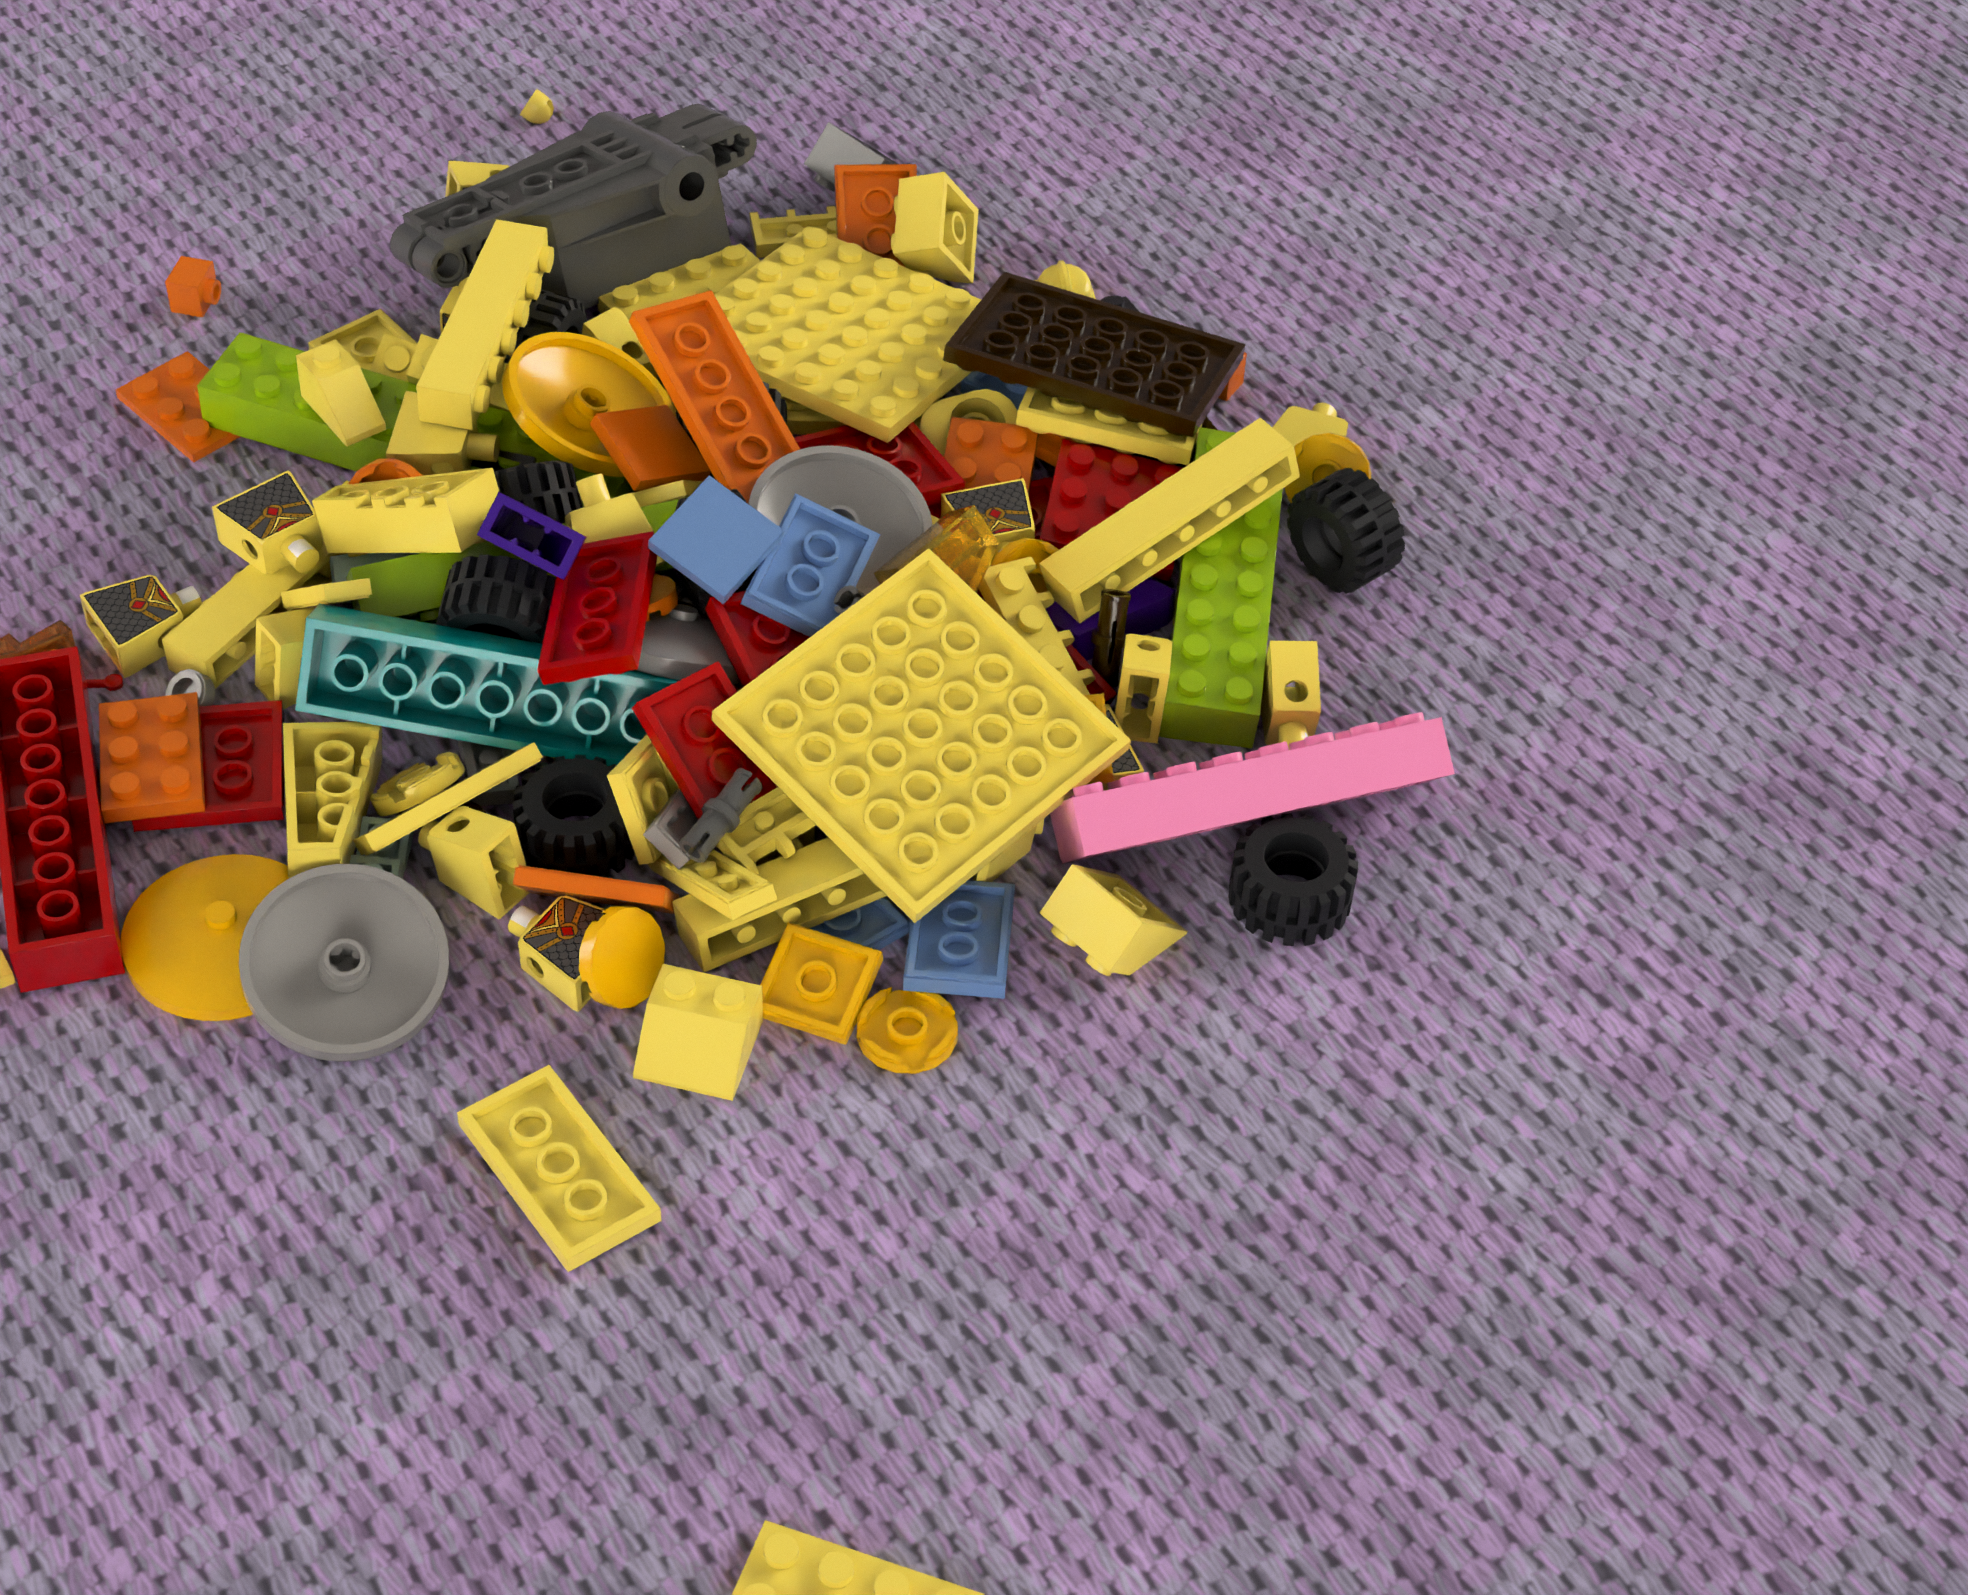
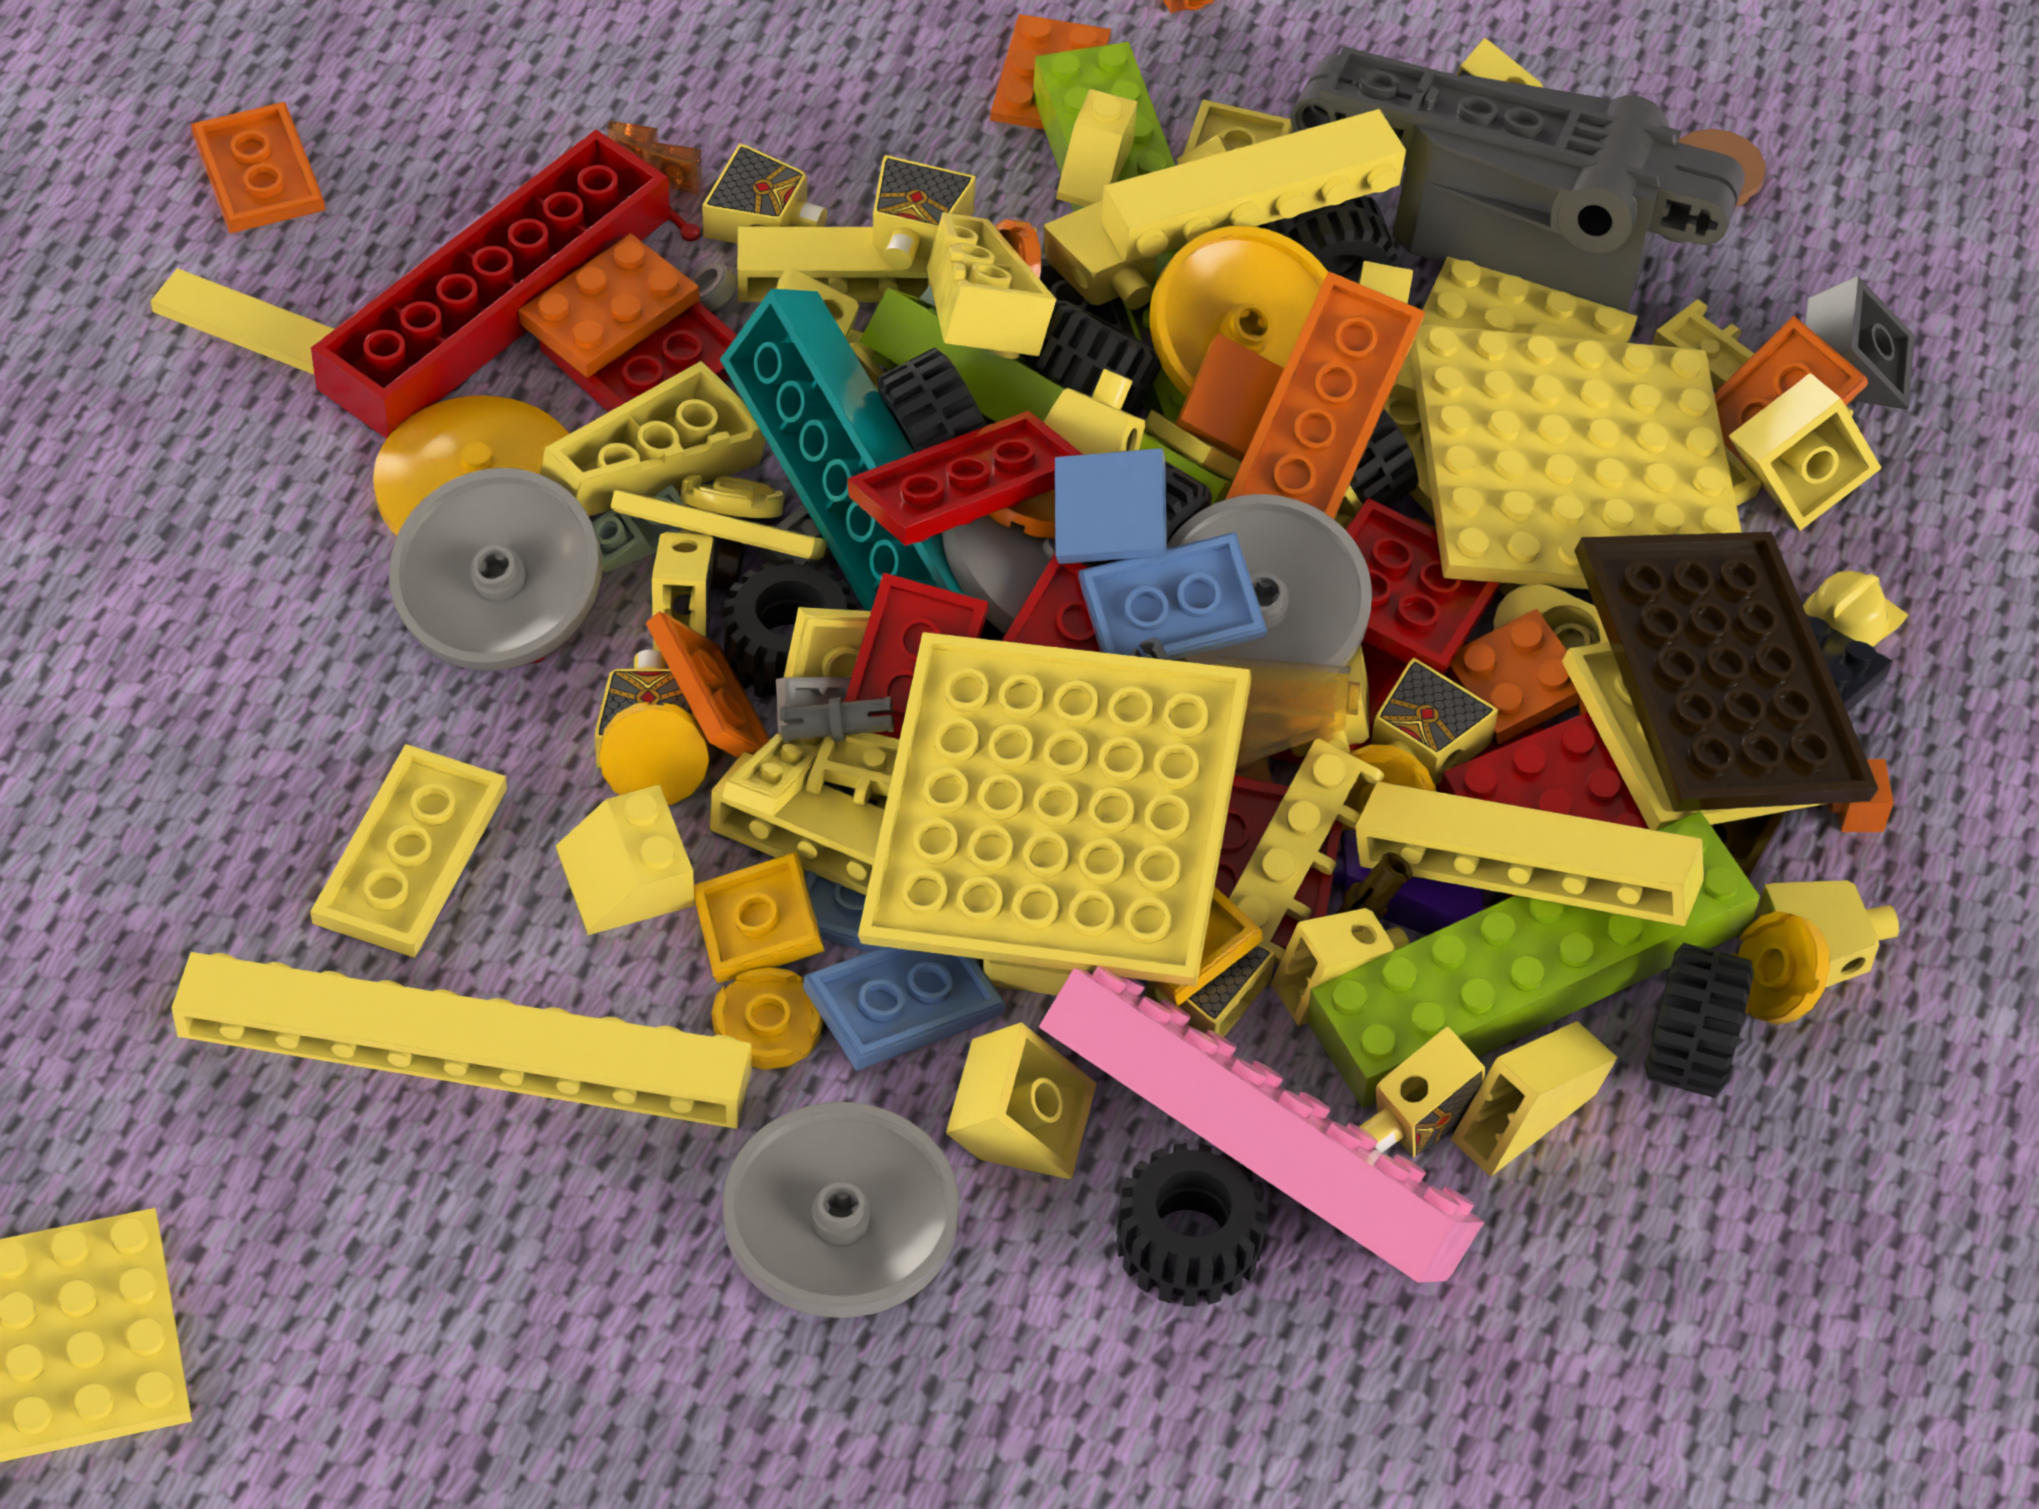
camera: 55 degrees right, 5 degrees up
(326, 594) = (853, 292): light yellow tile -> none
(531, 535) = (998, 370): dark purple slope -> none
(538, 108) = (1683, 61): light yellow hinge -> none
(766, 1231) = (463, 1039): none -> light yellow brick
(1129, 1067) = (840, 1209): none -> light grey dish
(1326, 619) = (1531, 1094): none -> light yellow slope

